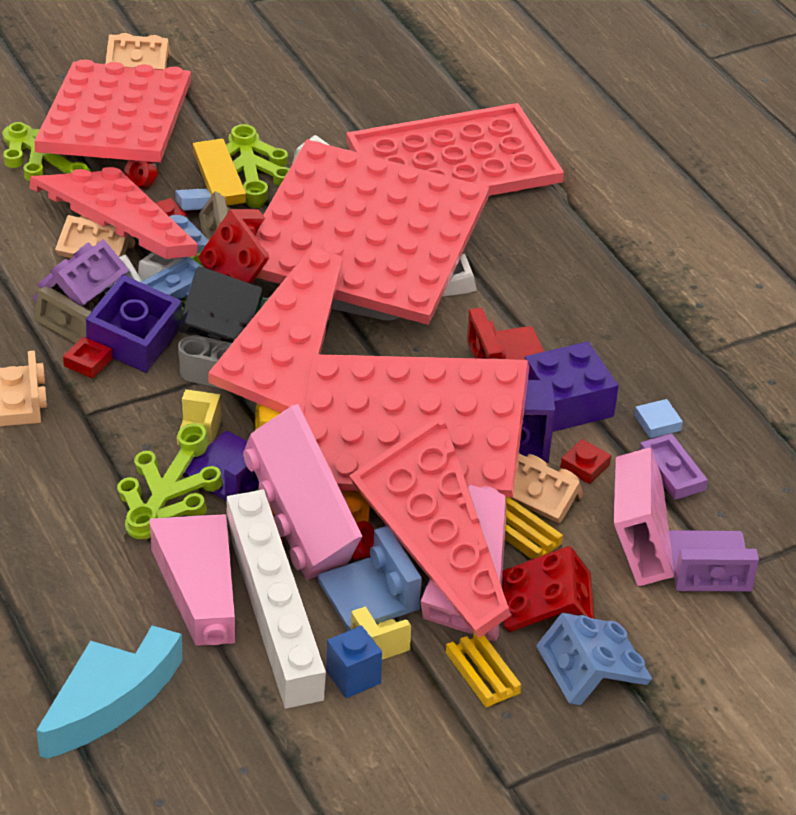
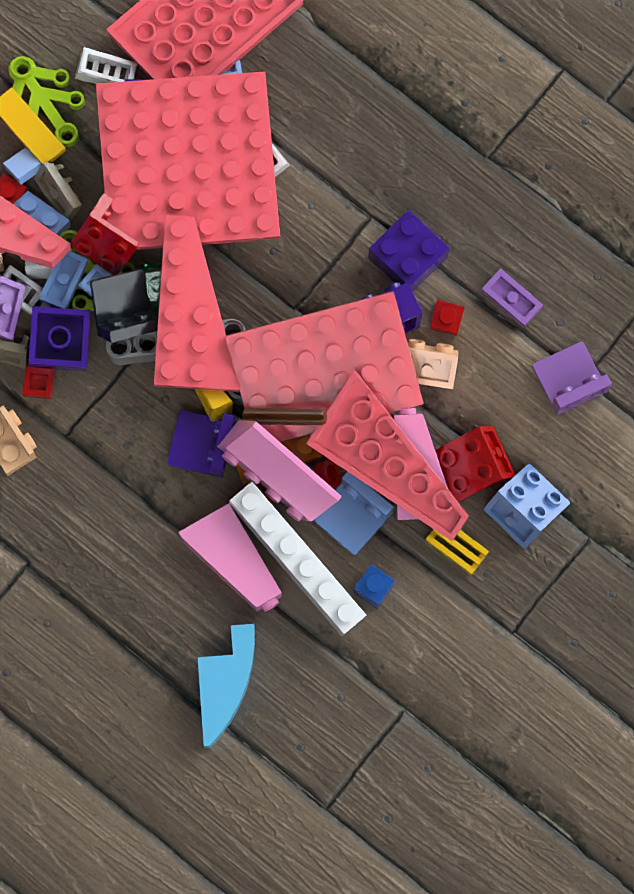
camera: 25 degrees left, 35 degrees up
(193, 443) = (167, 488): lime plant -> none
(202, 409) = (155, 410): light yellow panel -> none
(350, 441) = (286, 416): none -> reddish brown axle
(389, 635) = (377, 550): light yellow panel -> none
(502, 344) = (345, 231): red bracket -> none
(531, 527) = (443, 400): yellow tile -> none
(642, 517) = (511, 363): bright pink slope -> none
(658, 418) = (481, 249): light blue tile -> none

